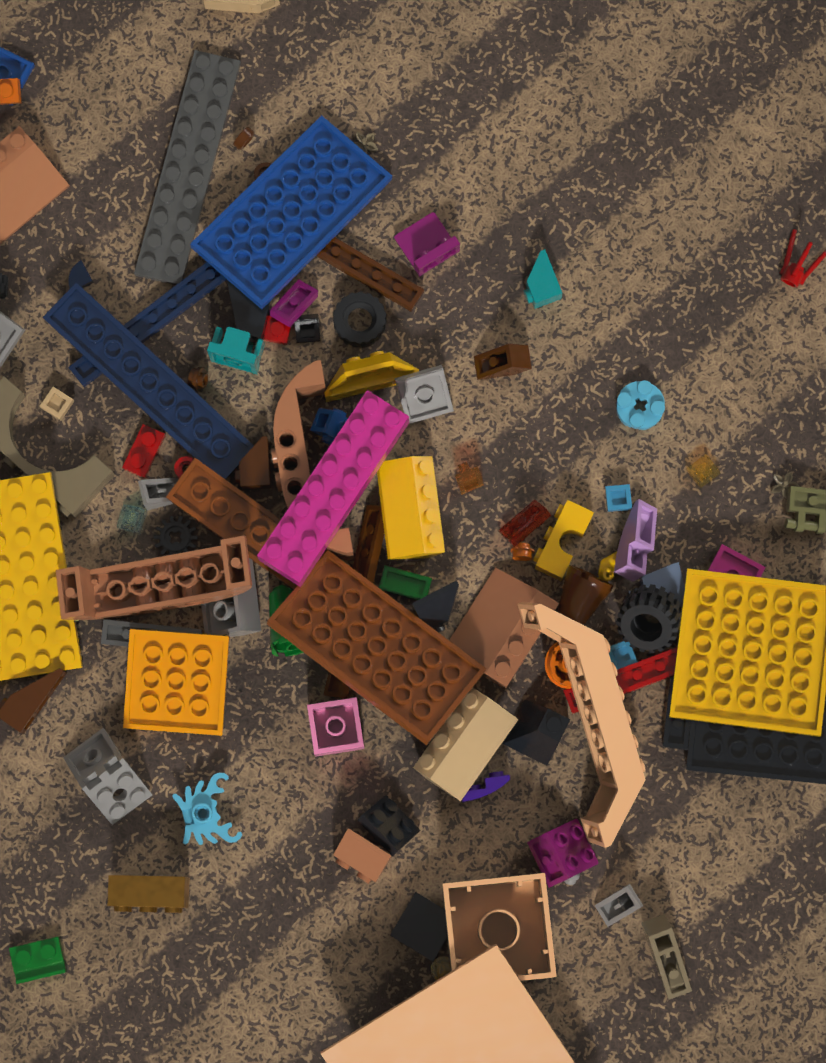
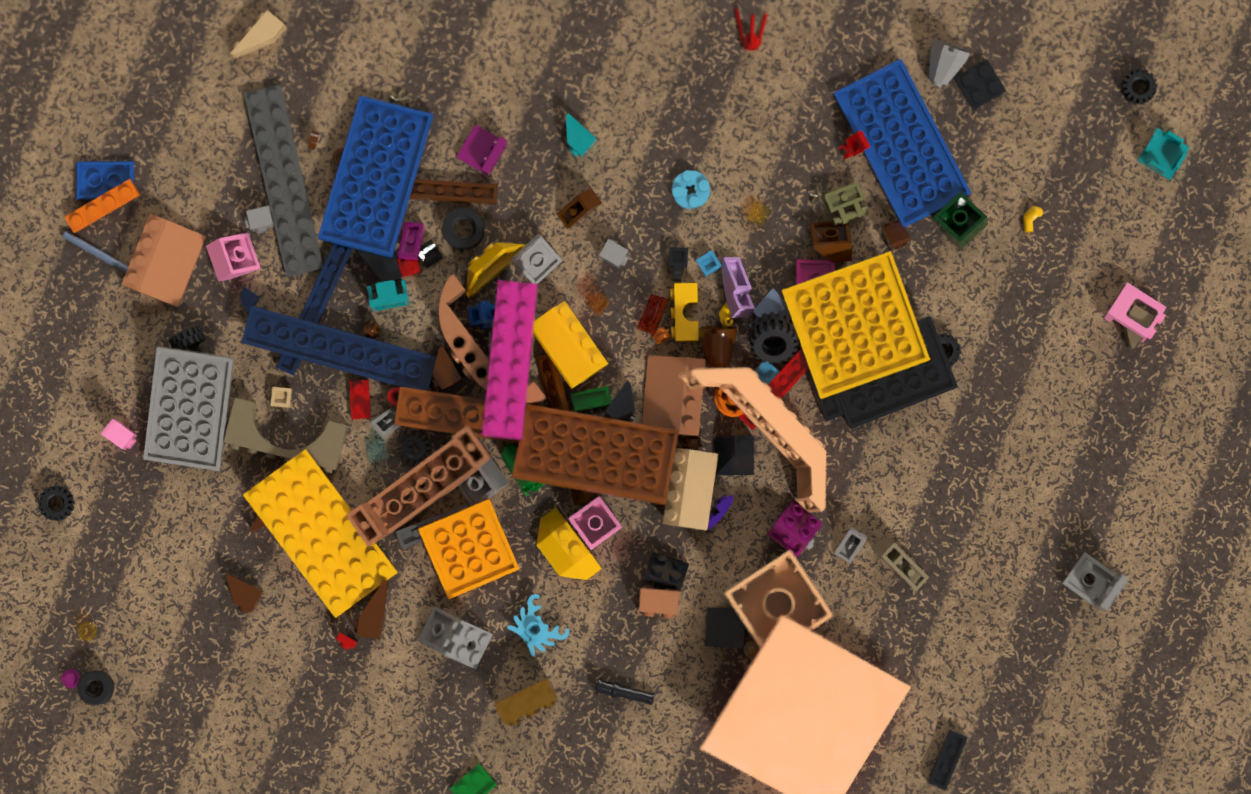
camera: 25 degrees left, 5 degrees up
(86, 221) = (233, 256): none -> bright pink slope
(138, 195) = (259, 219): none -> light grey brick
(260, 933) = (617, 690): none -> black pin
(286, 738) = (564, 548): none -> yellow wedge
(495, 692) = (692, 443): none -> reddish brown plate
(516, 433) = (614, 254): none -> light grey brick
(585, 476) = (678, 259): none -> black plate
(774, 544) = (832, 240): none -> reddish brown slope

